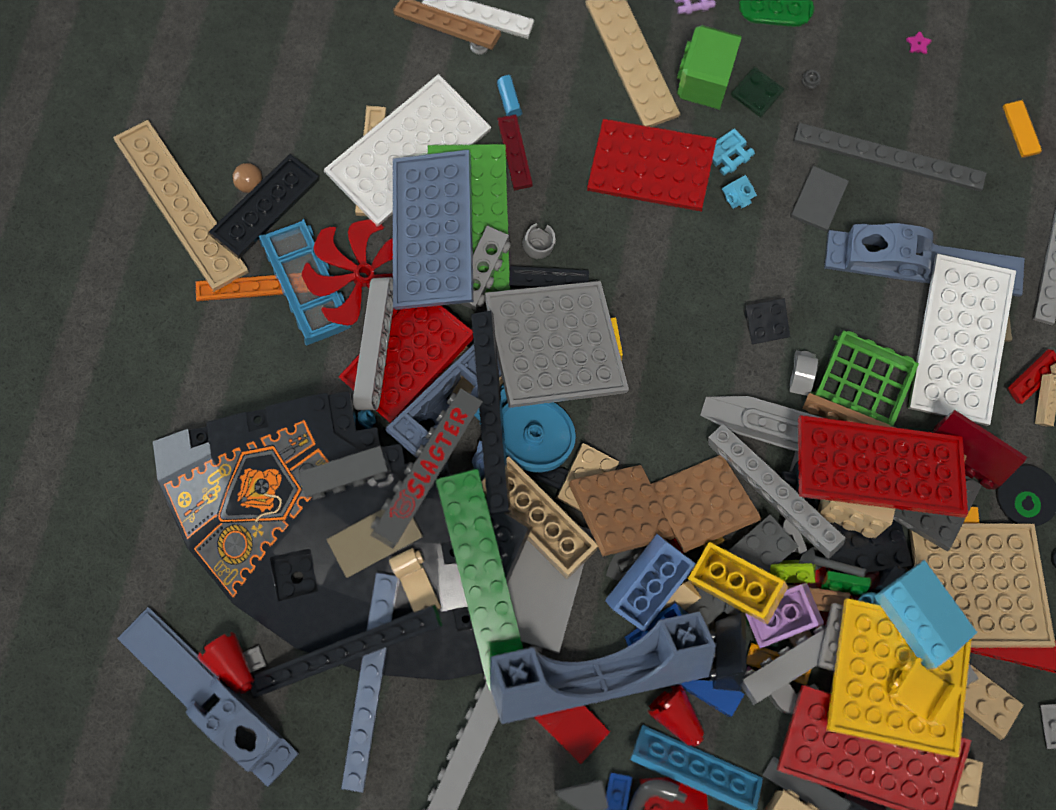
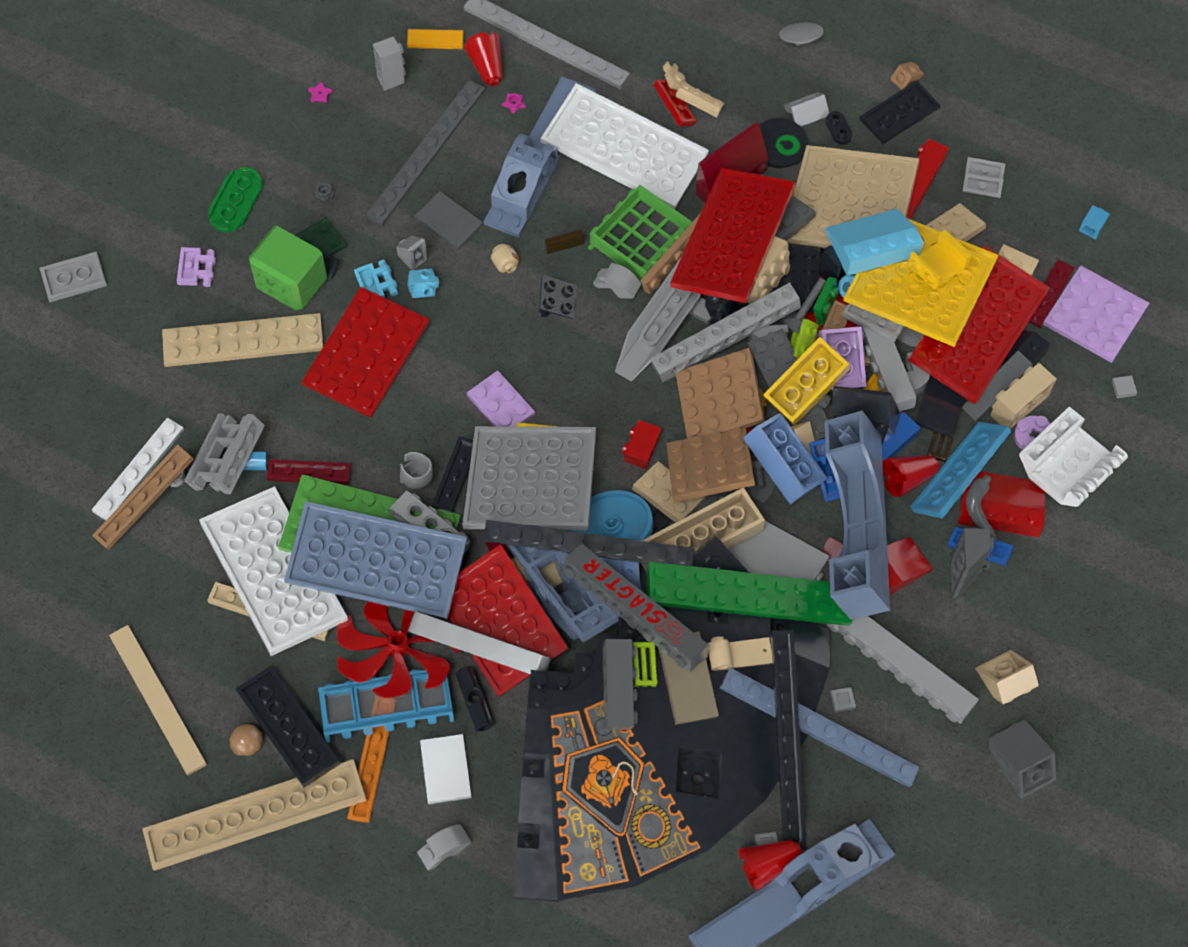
camera: 75 degrees left, 10 degrees down
(185, 369) = (443, 845): none -> light grey brick
(259, 351) = (445, 769): none -> white tile
(267, 97) = (158, 700): none -> tan tile
(318, 363) = (477, 710): none -> black piece
(357, 498) = (644, 682): none -> lime tile
(416, 701) = (842, 699): none -> light grey tile
(507, 74) = (240, 442): none -> light grey fence
(569, 653) = (832, 548): none -> slope
(631, 440) = (642, 444): none -> red piece
(637, 299) = (500, 402): none -> lavender plate
(732, 104) = (331, 265): none -> black plate
(746, 744) = (943, 458): none -> dark brown tile
(761, 732) = (939, 408): none -> black tile
(770, 173) = (412, 251): none -> light grey slope
(794, 260) = (505, 258): none -> tan head
(831, 310) = (564, 241): none -> dark brown tile
(969, 89) = (389, 63): none -> light grey brick
(981, 218) = (514, 98): none -> dark pink plate
(1016, 179) = (486, 56): none -> red cone

